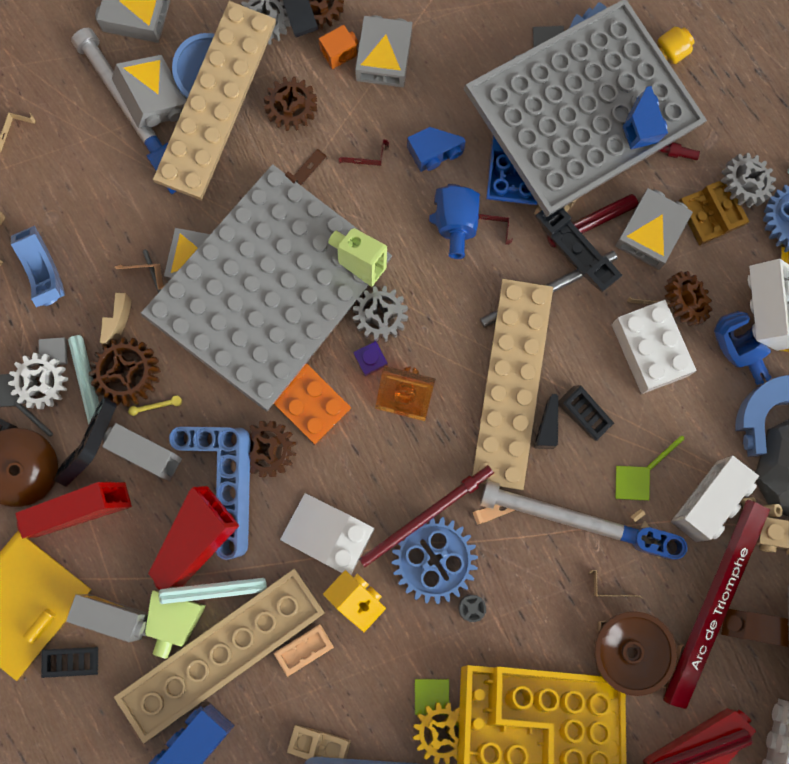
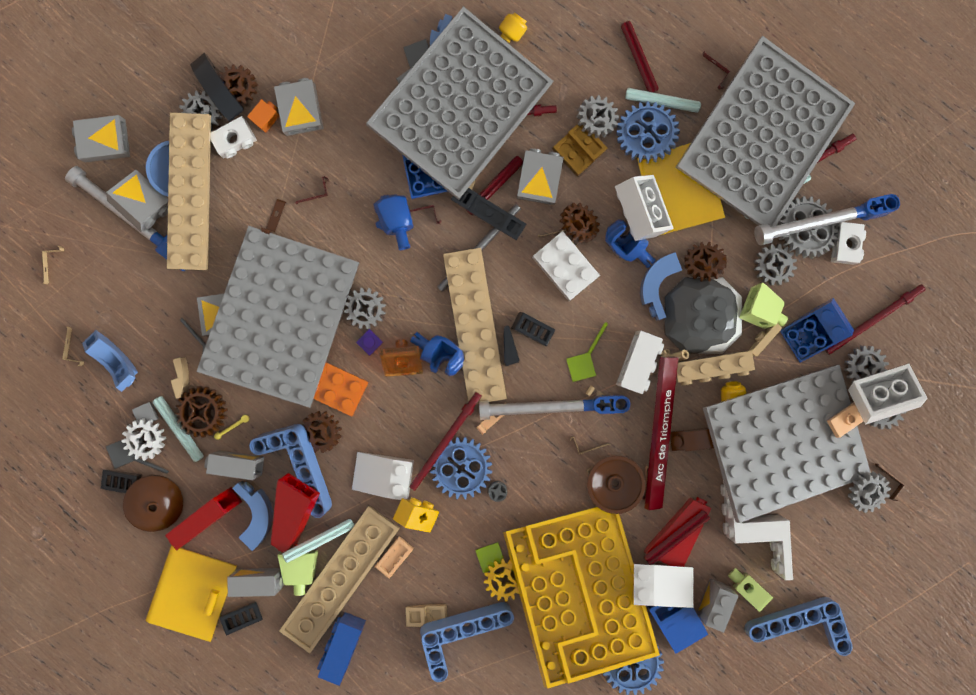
camera: 15 degrees left, 10 degrees up
(86, 451) = (196, 480): black beam -> none
(150, 532) = (261, 514): none -> medium blue arch
(157, 272) = (194, 329): light nougat piece -> none
(298, 48) = (221, 137): none -> white brick
(299, 109) = (240, 169): reddish brown gear -> none
(360, 254) = (335, 274): yellowish green torso -> none
(433, 147) = (360, 170): blue slope -> none
(458, 397) = (440, 350): none -> blue piece
(645, 122) = (506, 103): blue slope -> none

